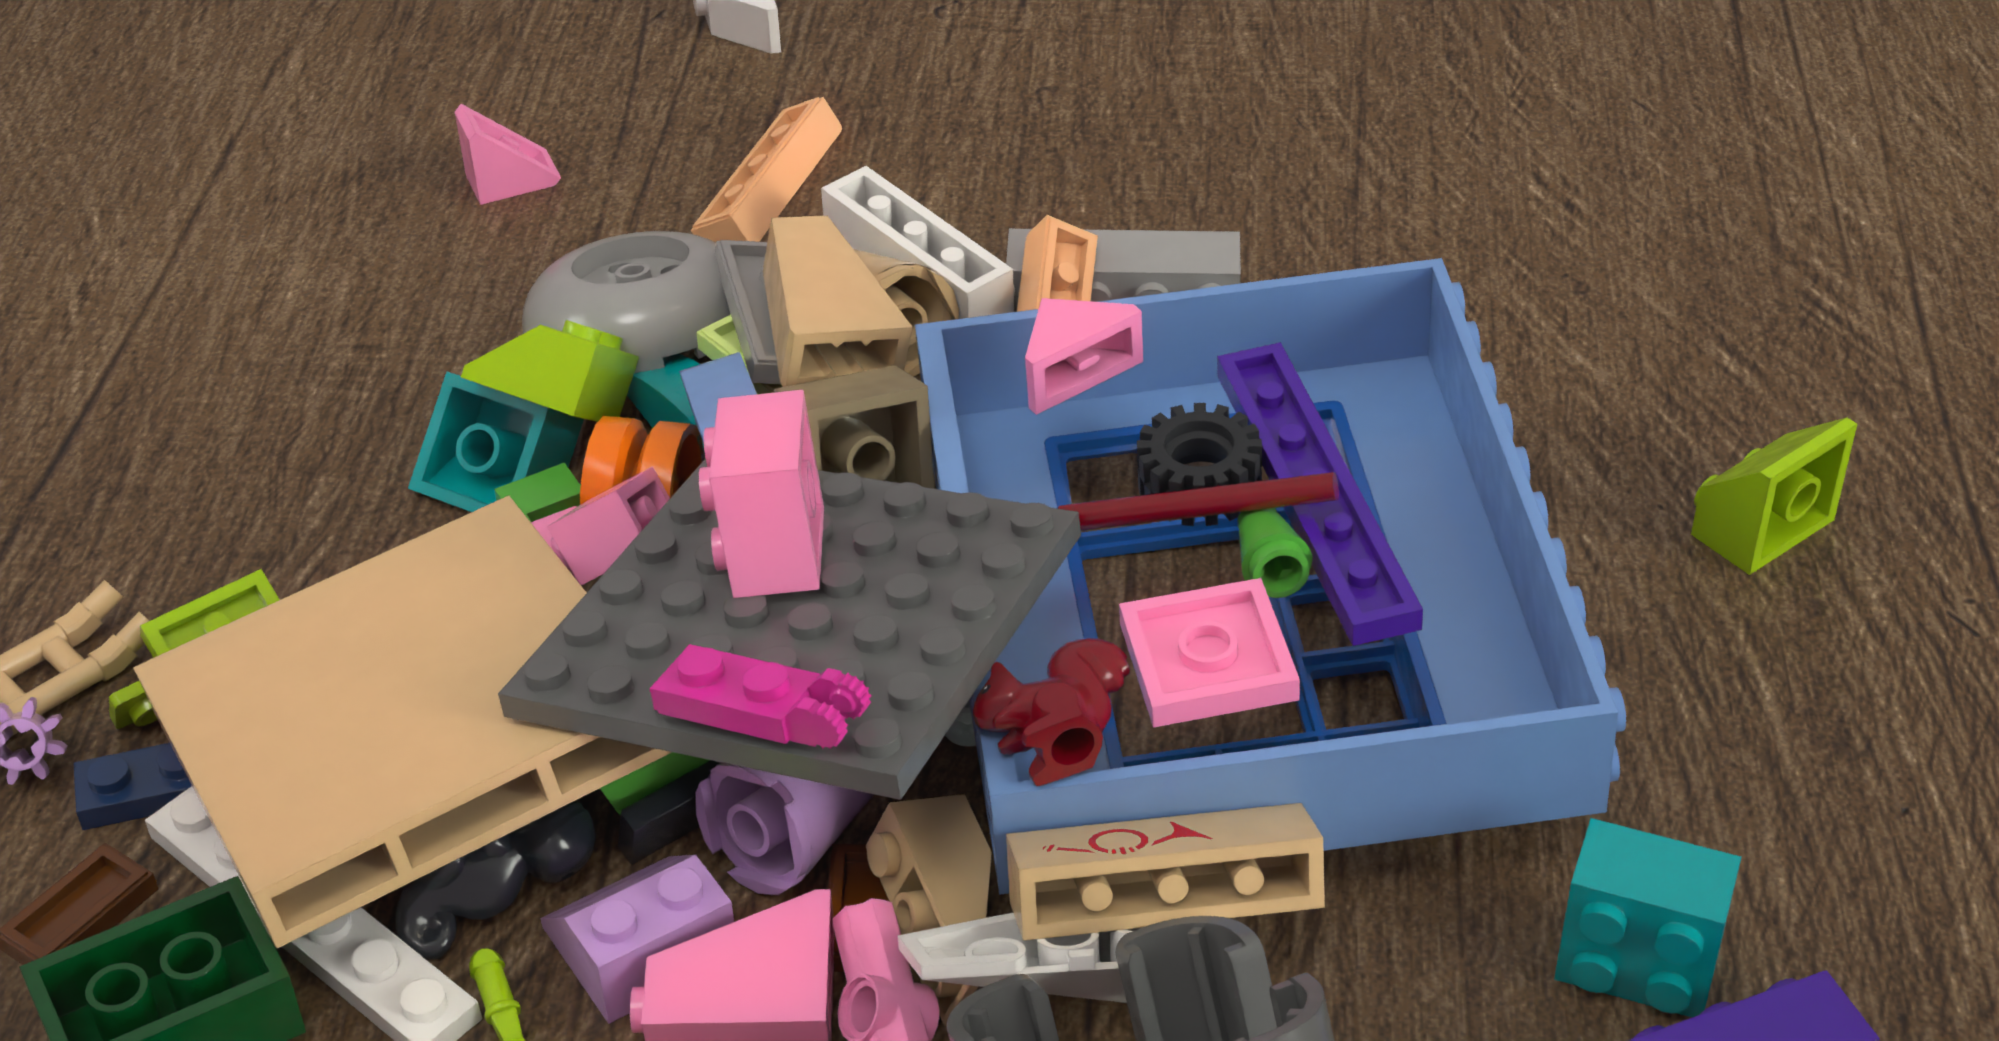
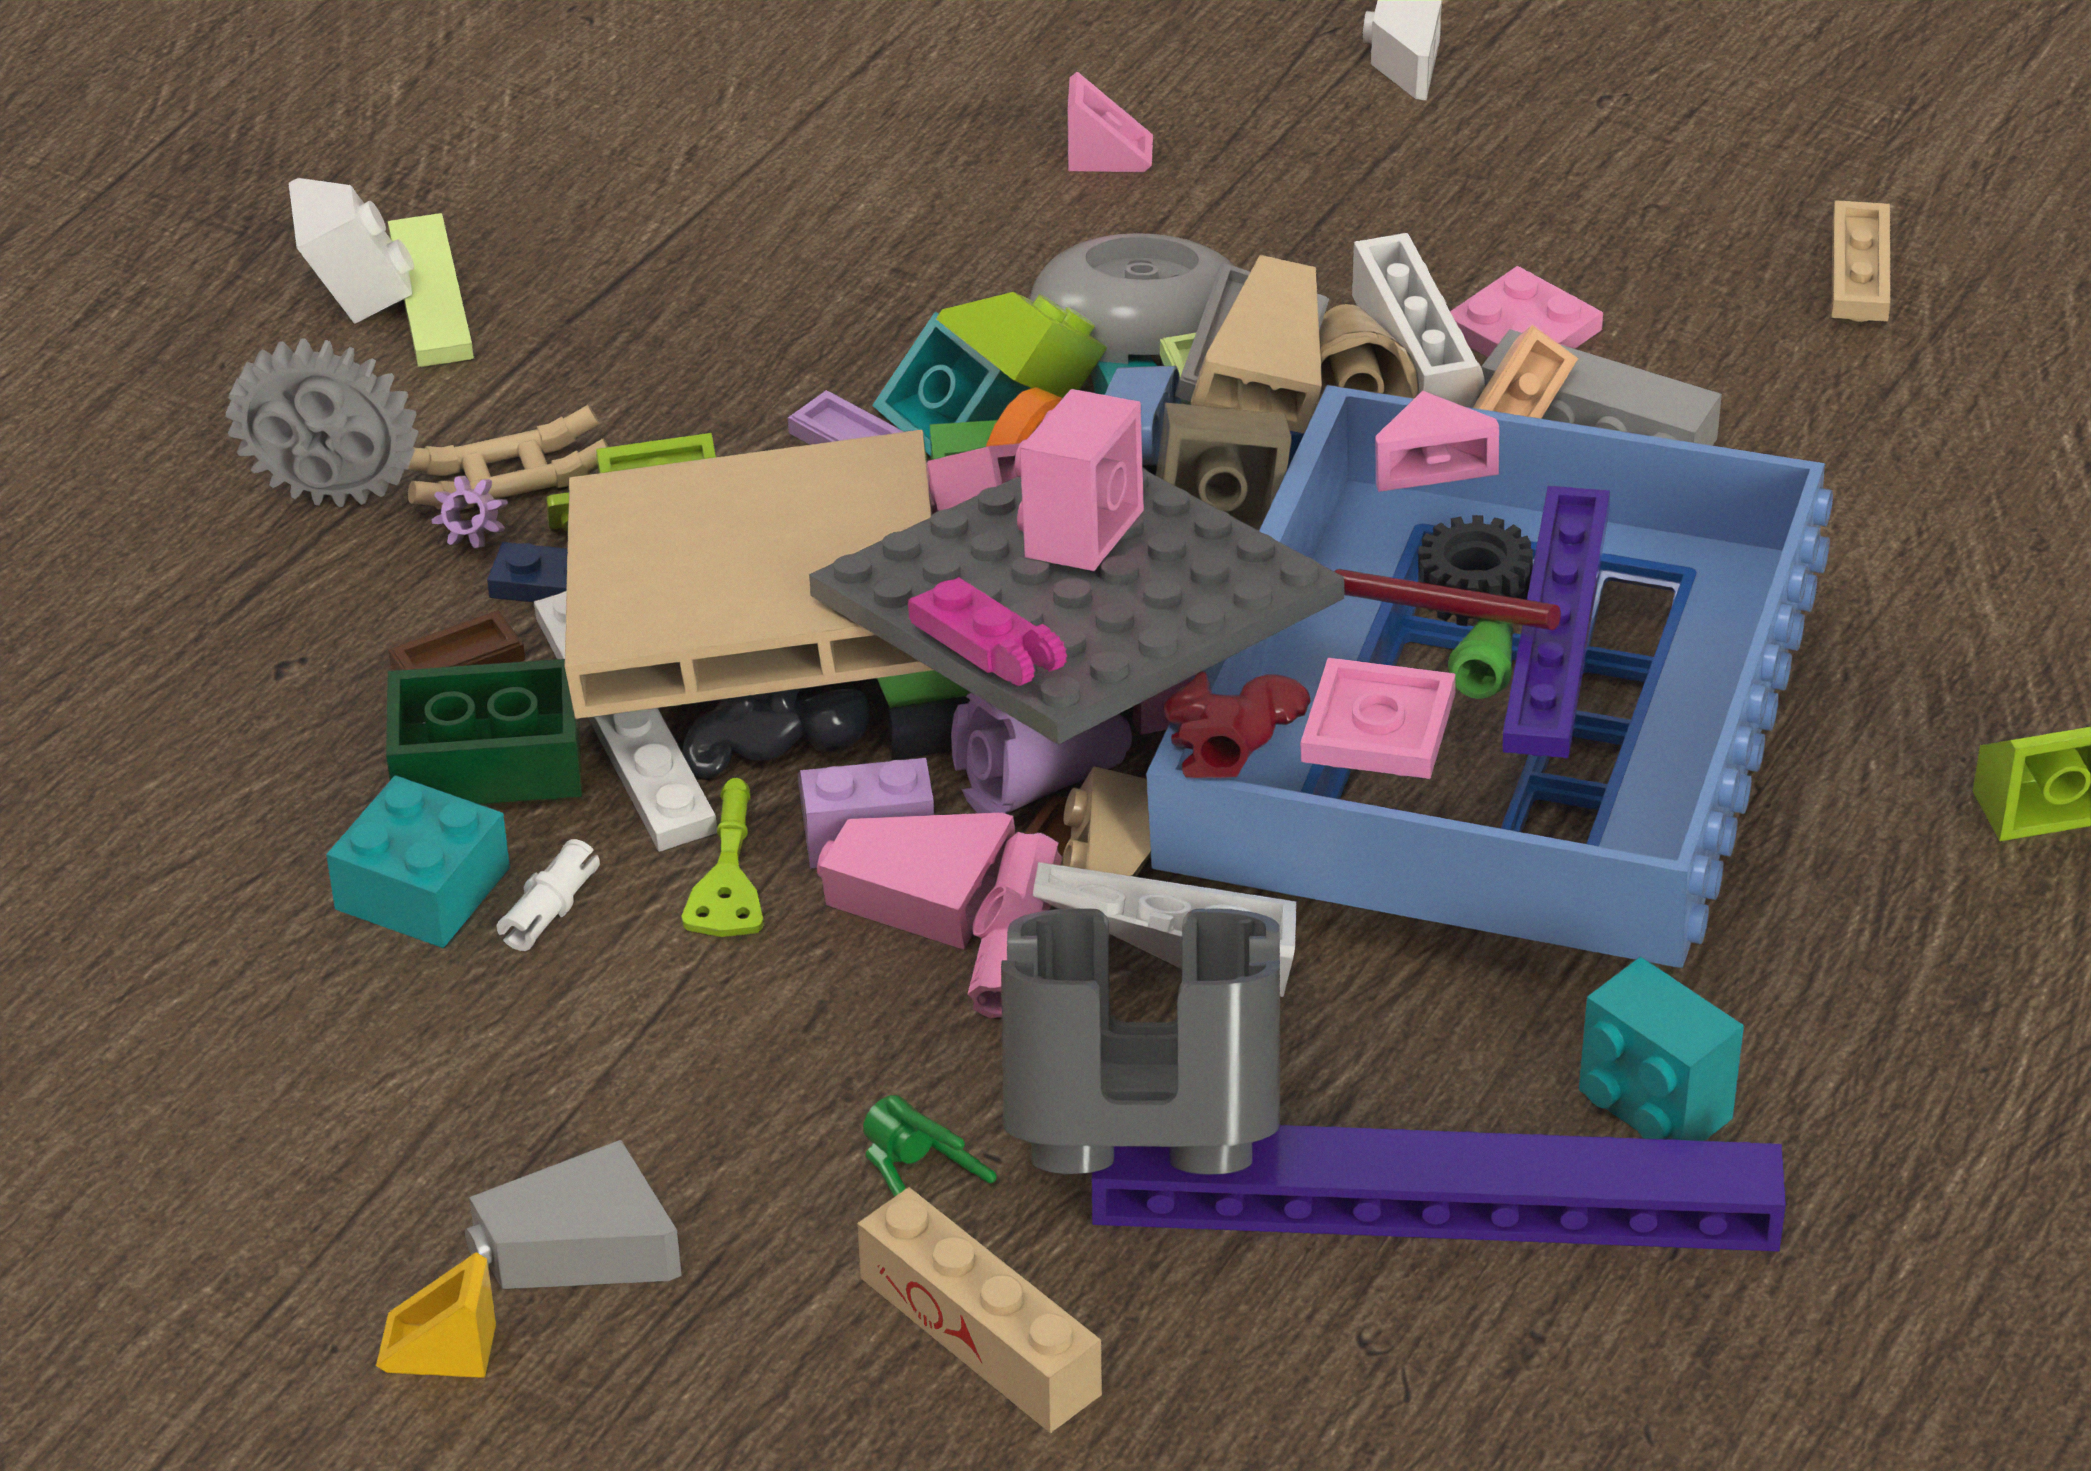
camera: 25 degrees right, 0 degrees up
(386, 520) = (835, 419): none -> lavender tile
(770, 173) = (1347, 213): light nougat slope -> none
(989, 206) = (1522, 301): none -> bright pink plate
(1164, 870) = (1292, 882): tan brick -> none
(1263, 84) = (1861, 261): none -> tan plate

